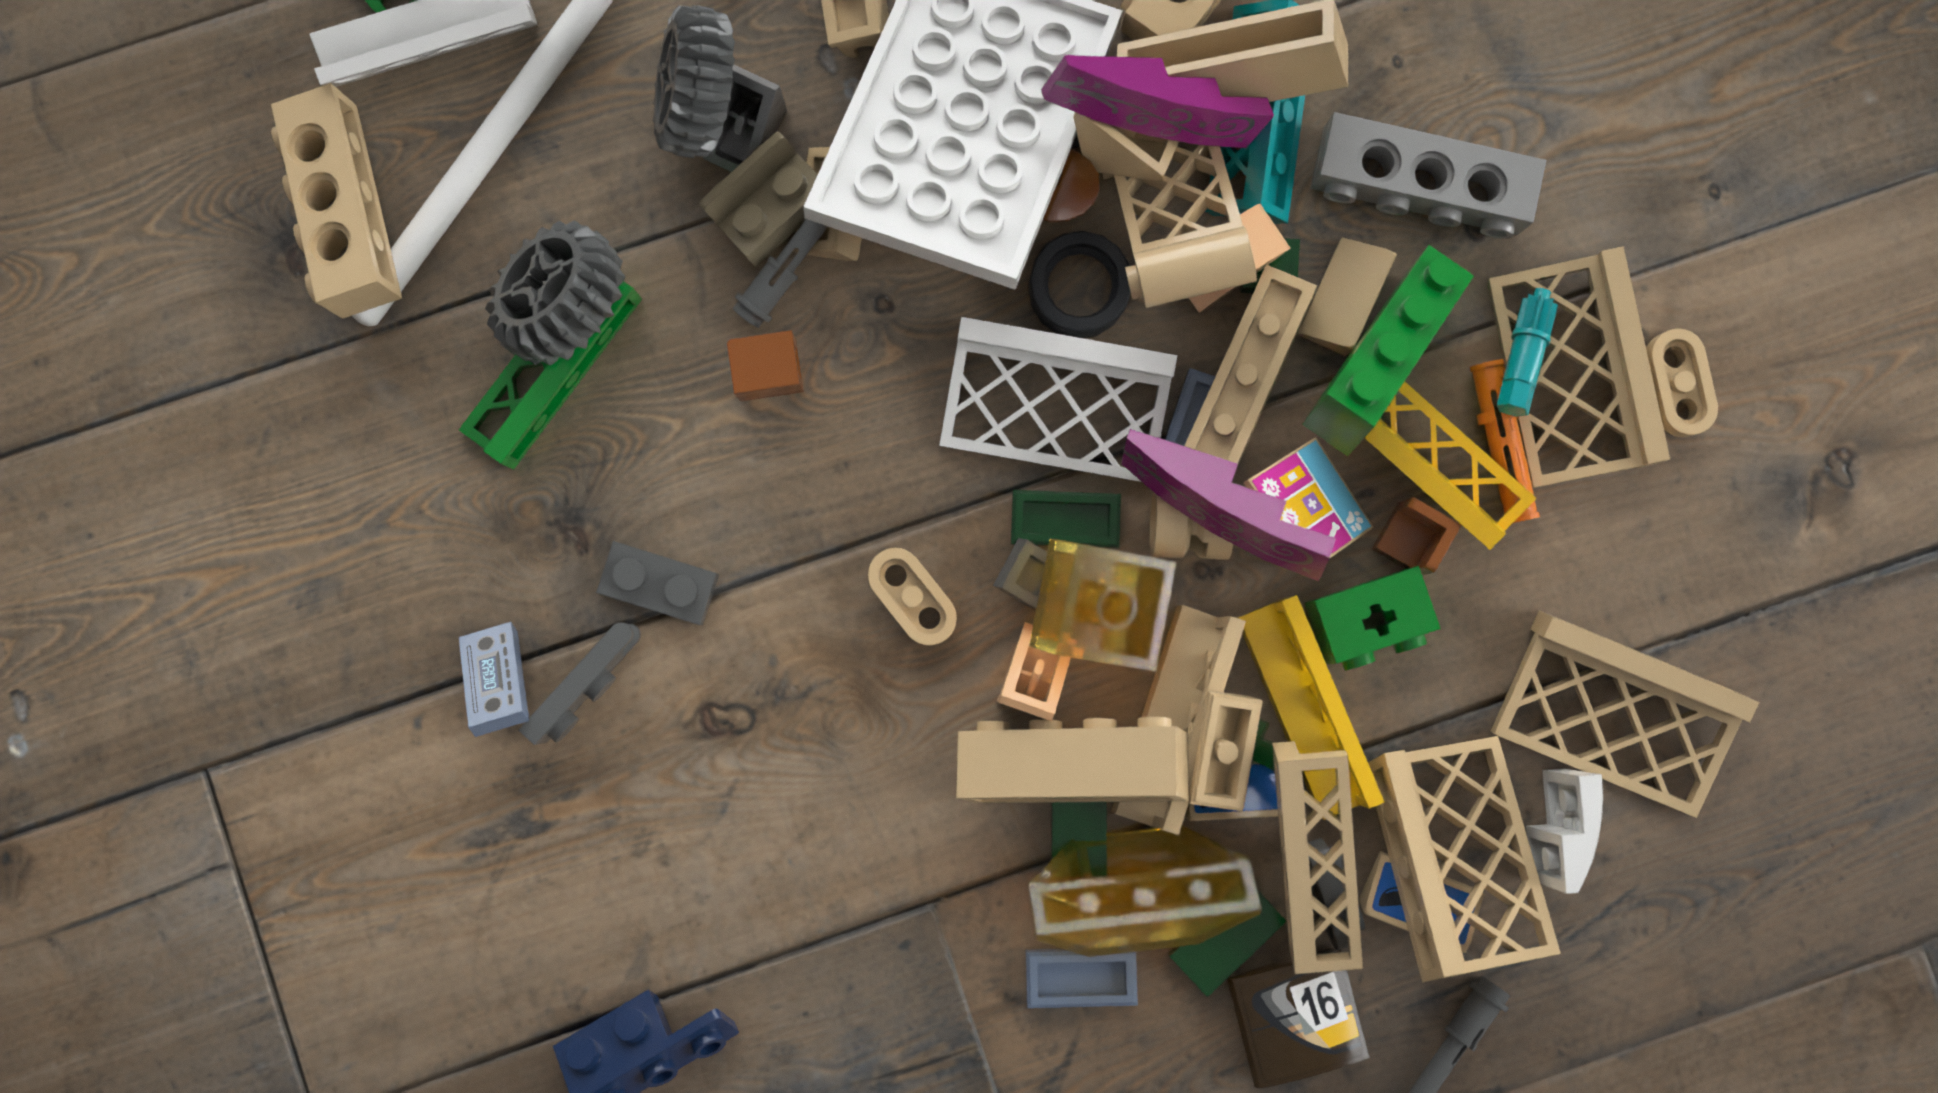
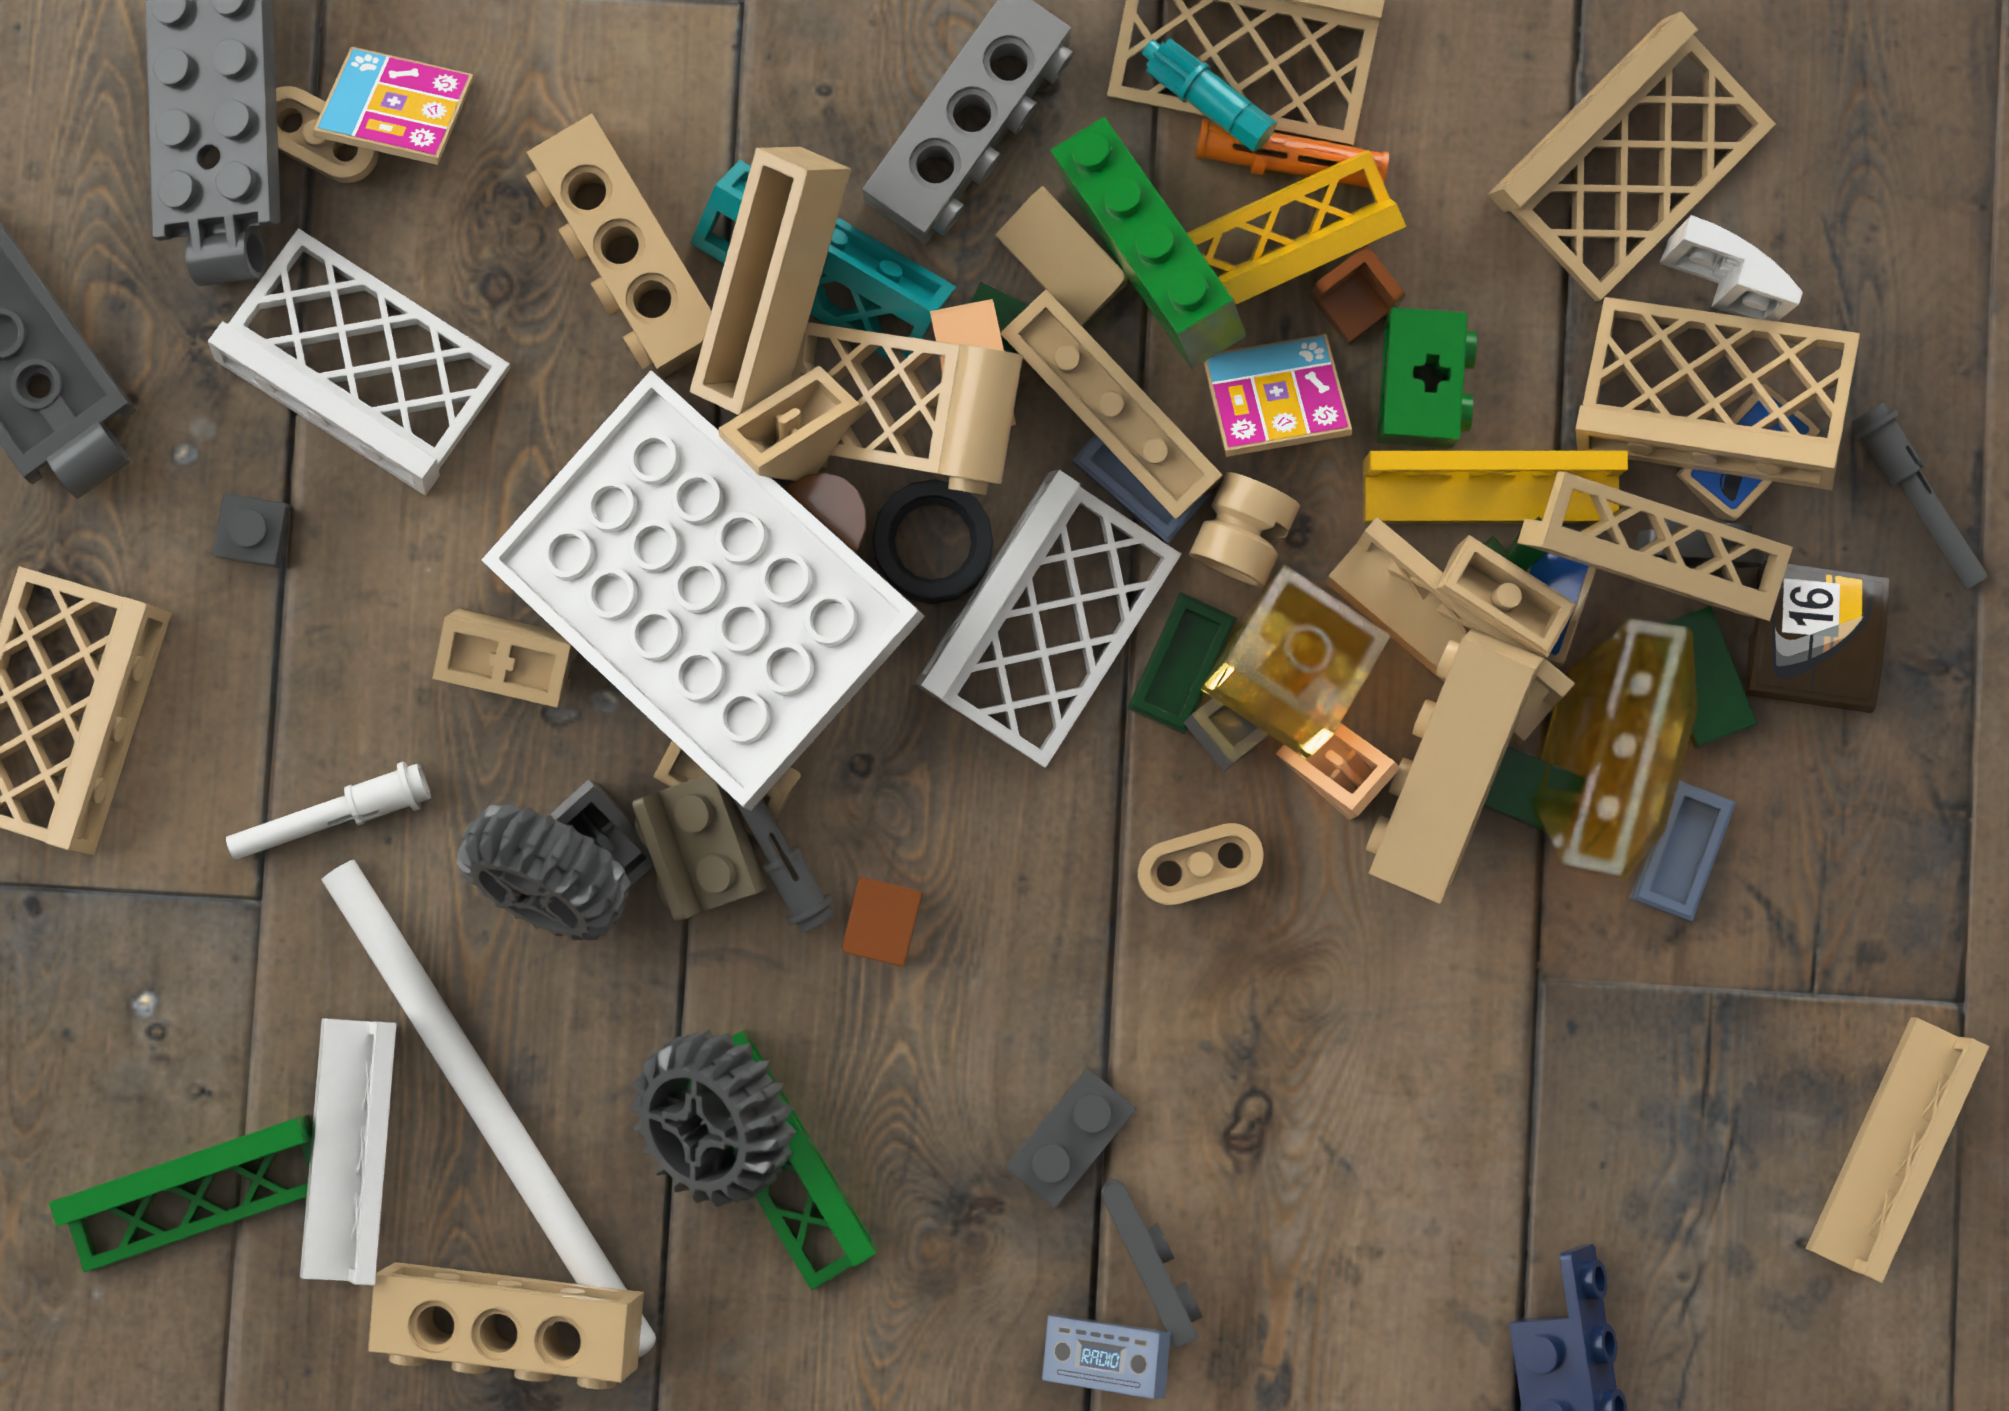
camera: 65 degrees left, 0 degrees up
(1143, 99) = (777, 389): magenta slope -> none
(1204, 492) = (1224, 503): slope -> none

